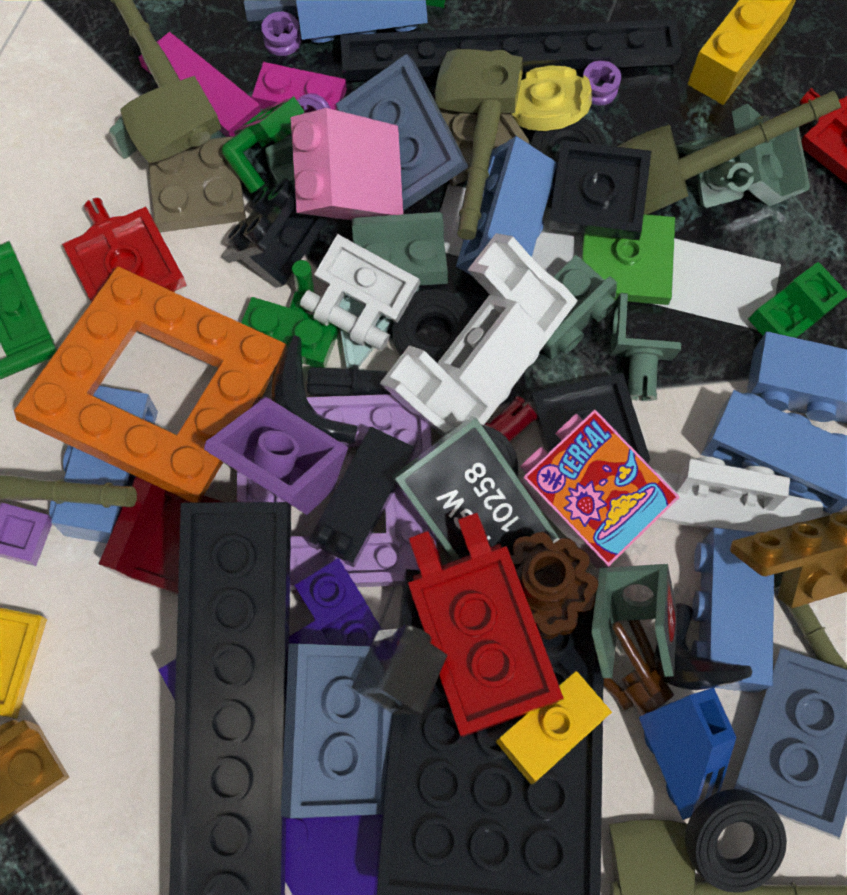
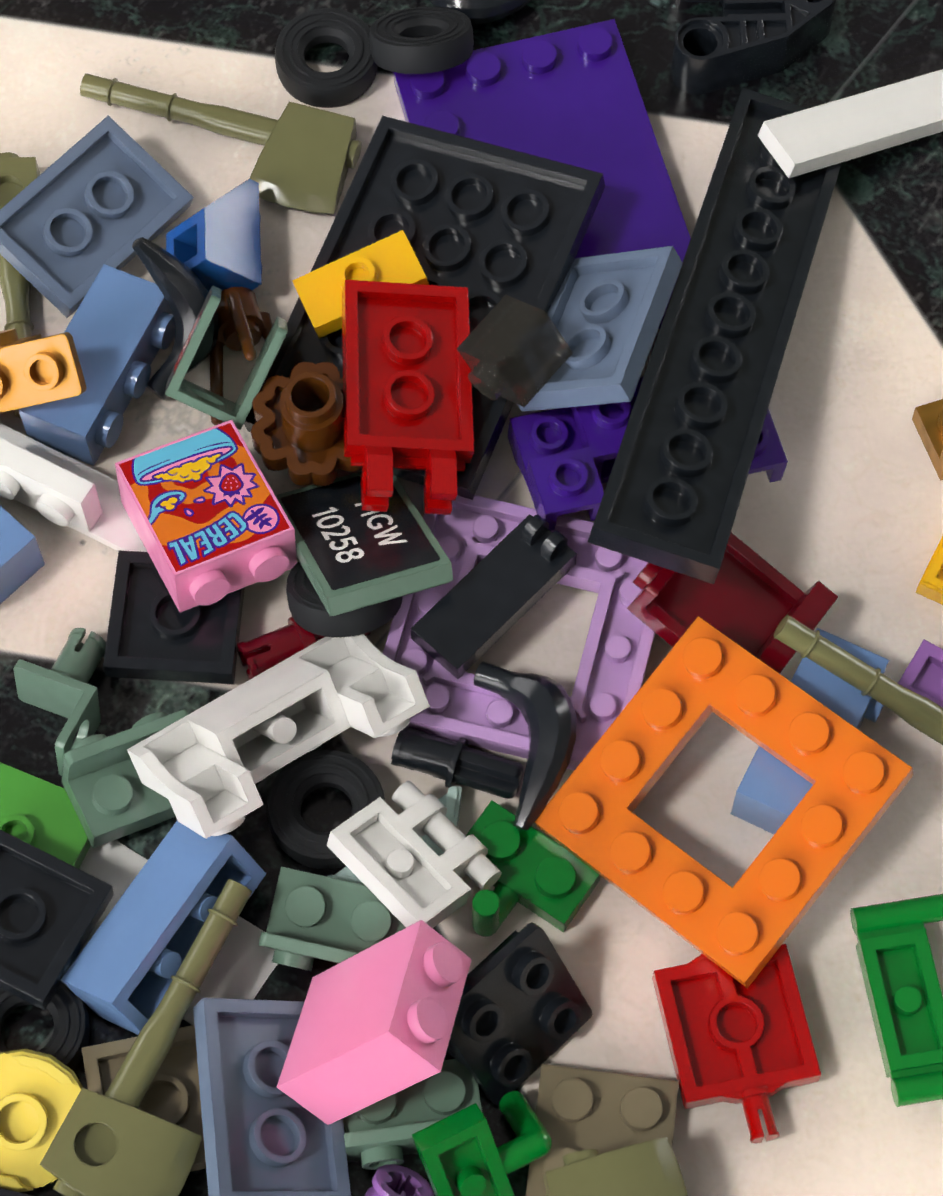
camera: 160 degrees left, 5 degrees down
(281, 454) = (590, 623): medium lavender slope -> none
(757, 863) = (189, 150): black tyre -> none

